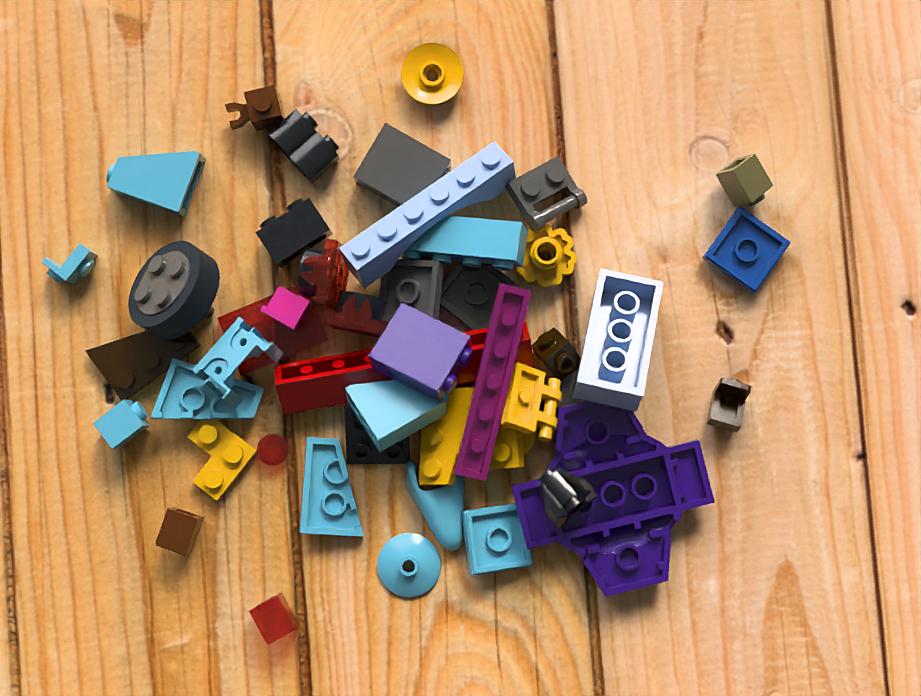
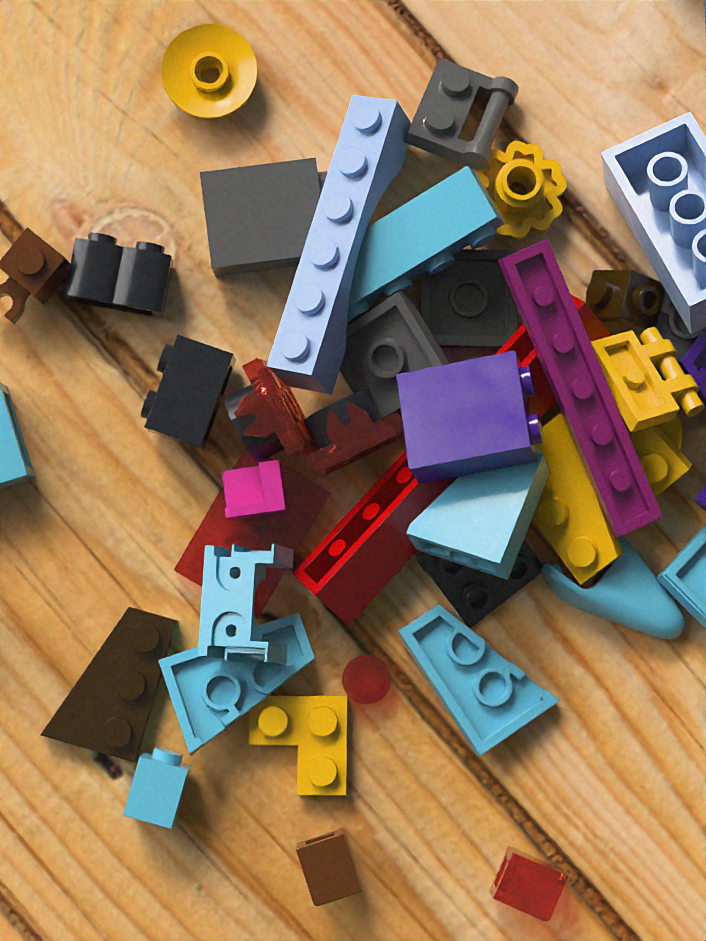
camera: 40 degrees left, 0 degrees up
(174, 290) = (98, 574): black wheel -> none
(418, 550) = (614, 693): medium azure dish -> none

